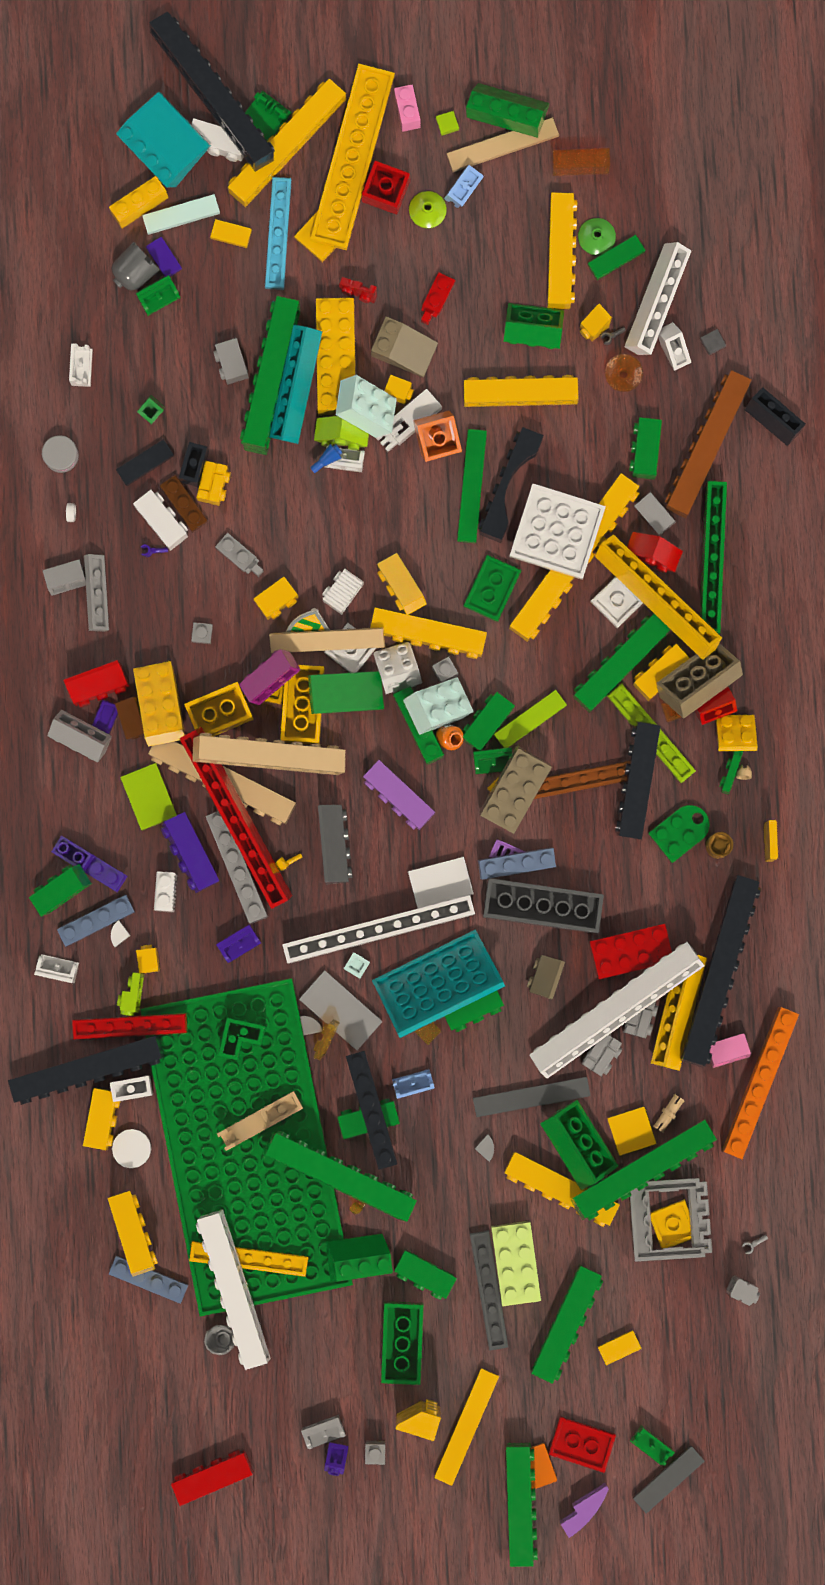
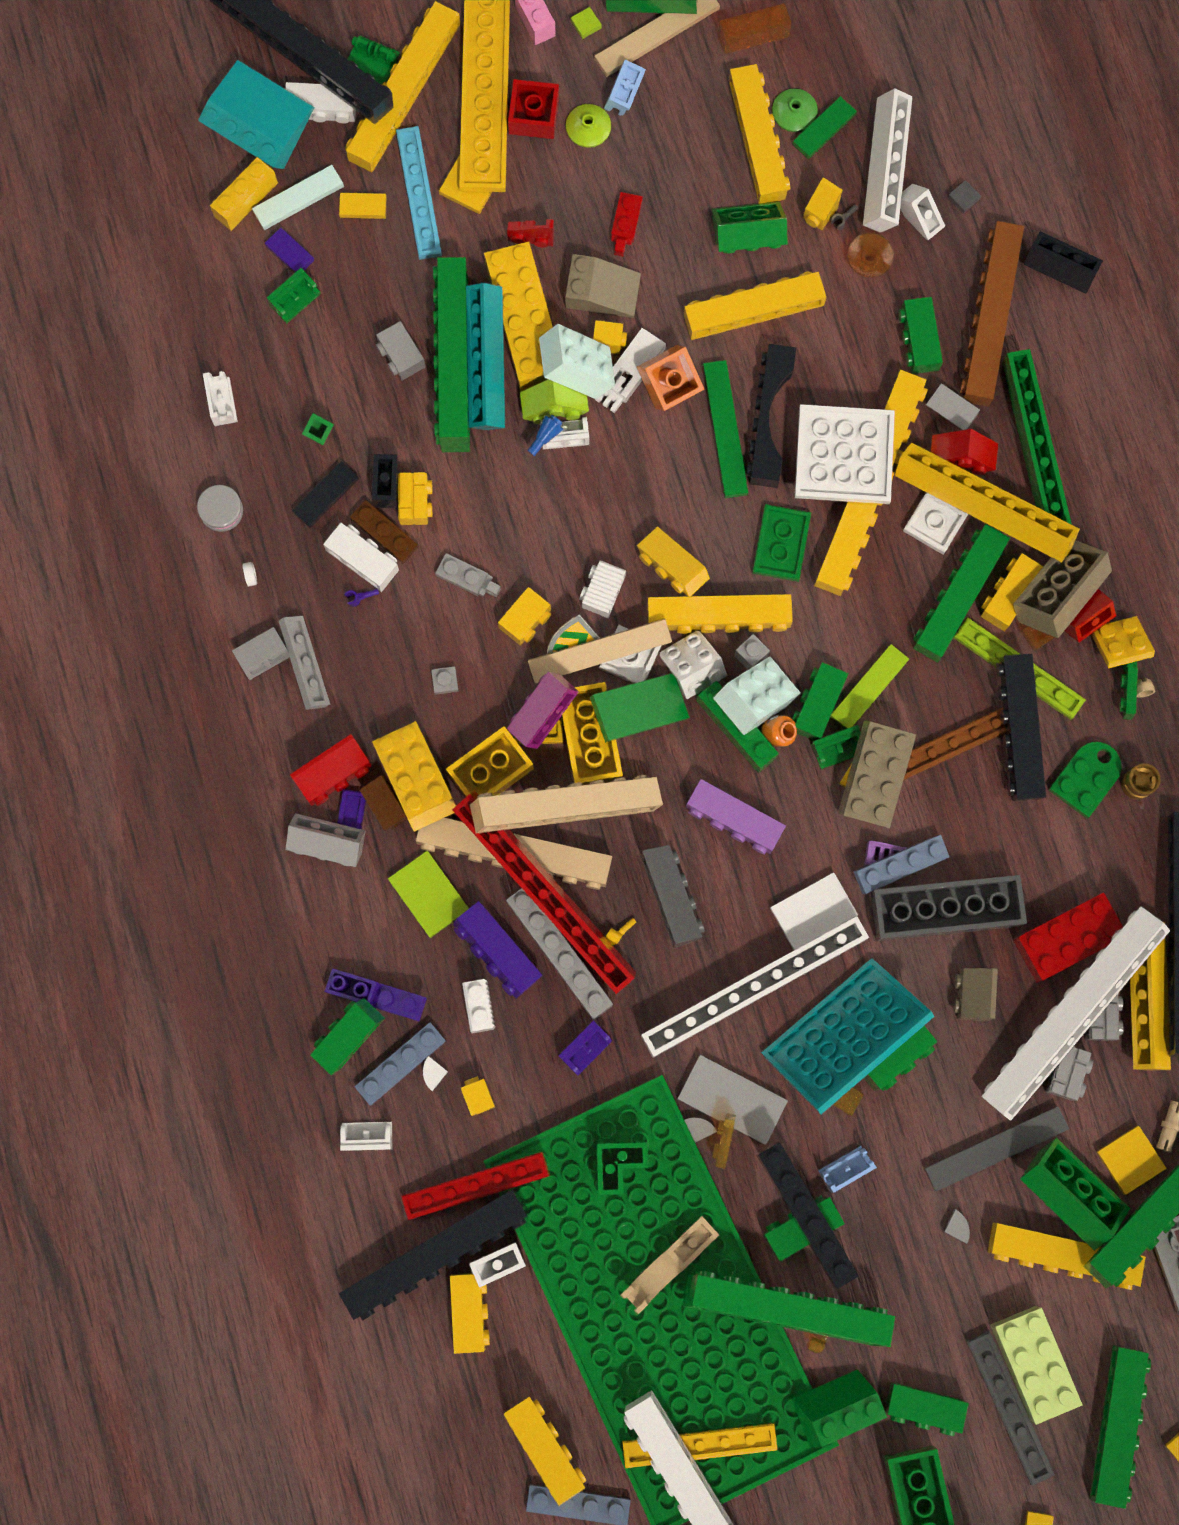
camera: 15 degrees left, 5 degrees down
(130, 1001) = (468, 1153): lime plate -> none
(131, 1148) = (515, 1341): white tile -> none
(133, 268) = (256, 270): dark grey cylinder -> none
(356, 965) = (738, 1038): light aqua plate -> none

